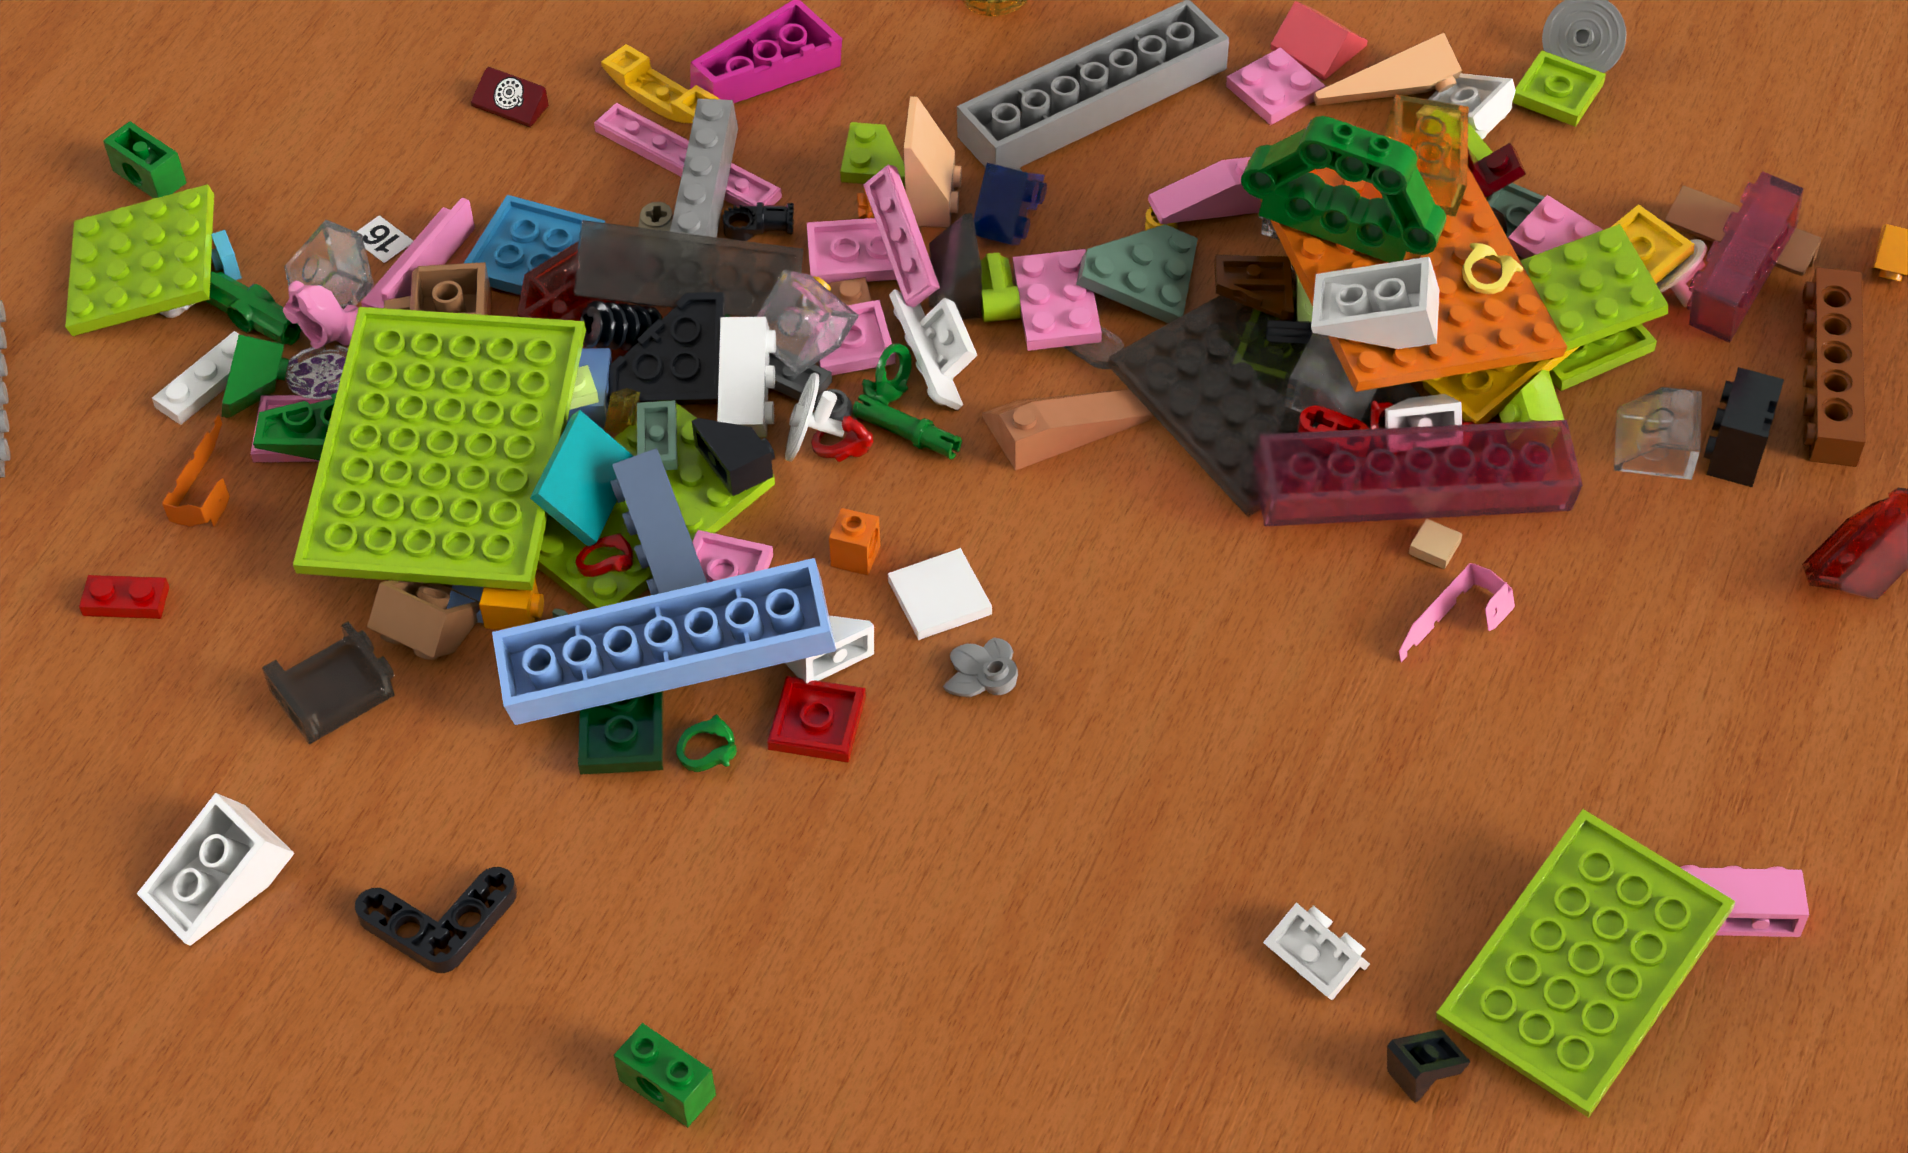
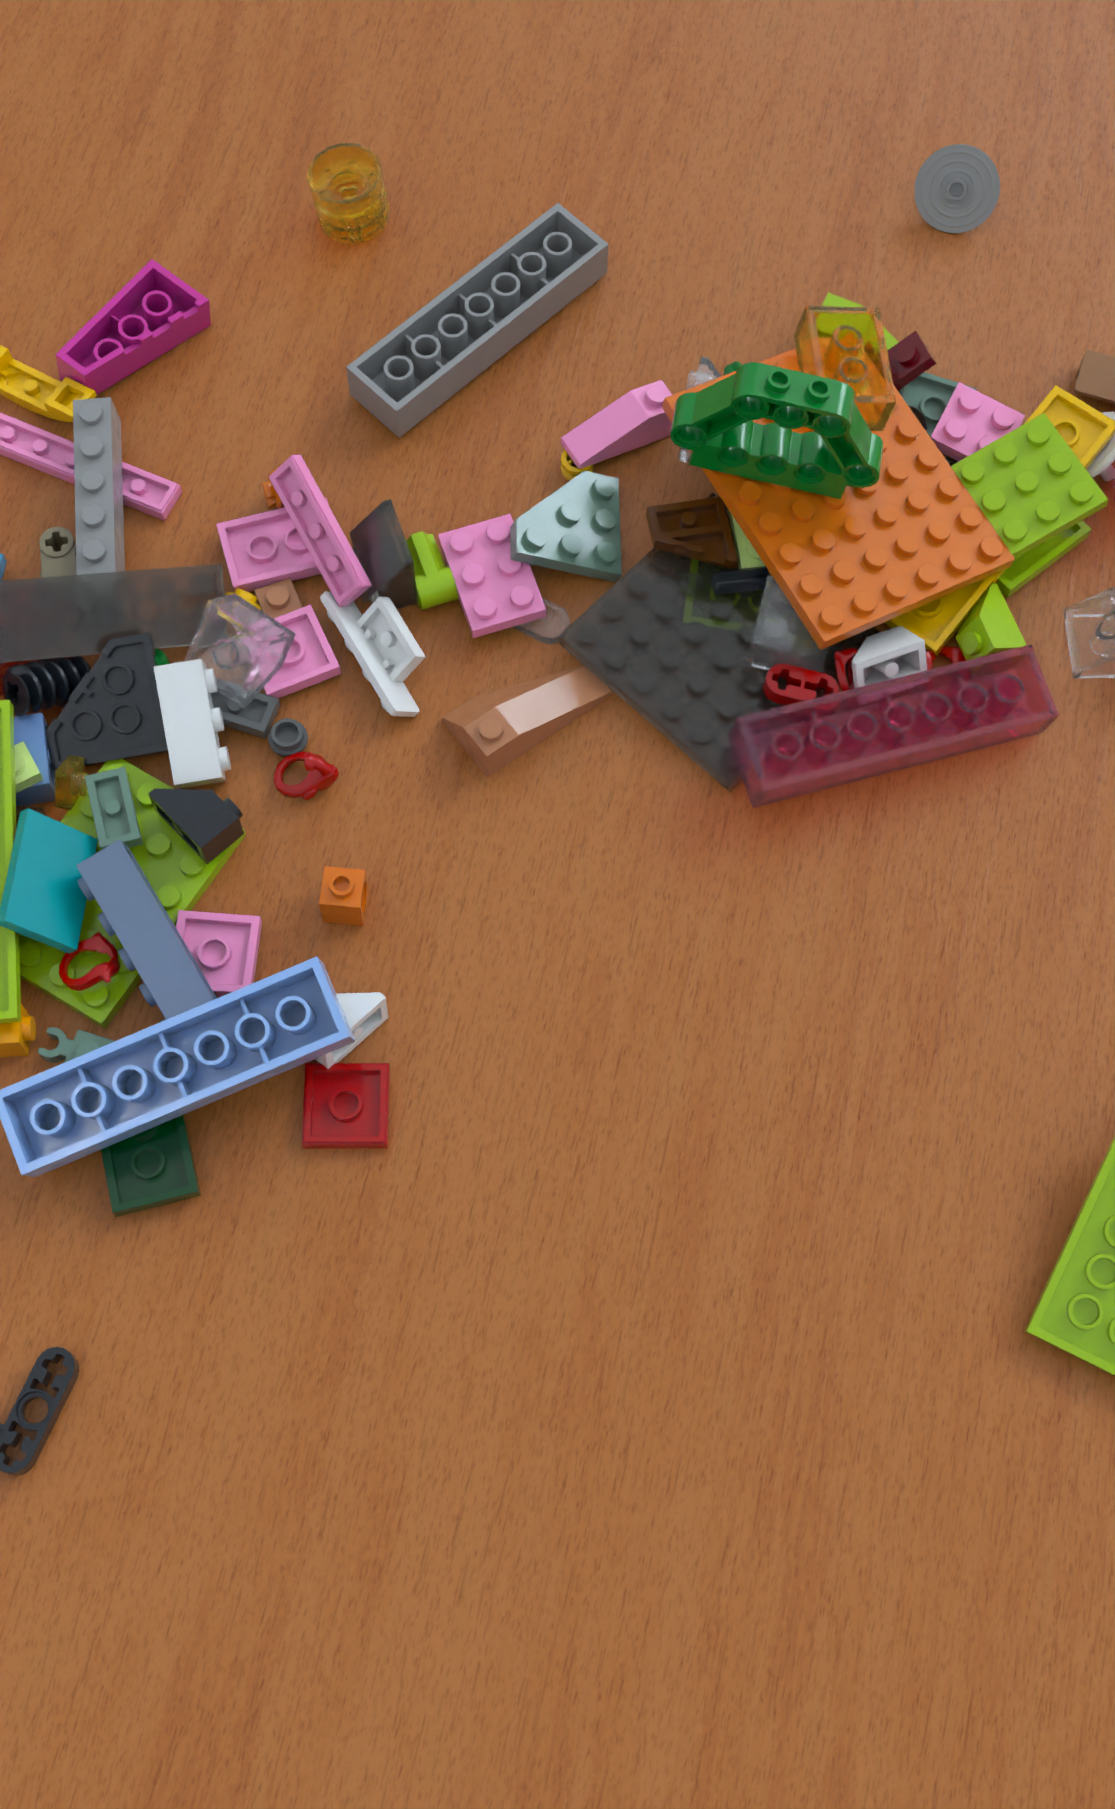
camera: 15 degrees left, 15 degrees up
(665, 1075) = (278, 1558): green brick -> none
(717, 756) = (257, 1170): green piece -> none
(759, 219) = (166, 524): black connector -> none
(803, 416) = (266, 761): white shield -> none
(868, 152) = (266, 430): lime wing -> none
(891, 390) = (340, 707): green piece -> none
(920, 432) = (383, 753): green pin -> none
(929, 169) = (333, 446): light nougat slope -> none
(939, 594) = (441, 937): white tile -> none
(982, 669) = (496, 1015): light grey plate -> none
(1005, 202) = (417, 470): clear blue brick -> none
(1274, 86) = (659, 286): bright pink plate -> none
(1315, 951) = (898, 1282): white bracket -> none
(1316, 41) = (690, 228): coral slope -> none
(1379, 304) = (830, 553): white slope -> none
(1410, 72) = (800, 253): light nougat wedge -> none
(1422, 1059) = (1028, 1388): black slope -> none
(1435, 543) = (920, 794): tan tile -> none
(1472, 574) = (974, 827): bright pink piece -> none
(1481, 251) = (946, 481): light yellow piece -> none
(1486, 97) = (859, 276): white slope -> none
(1558, 88) = (939, 249): lime plate -> none

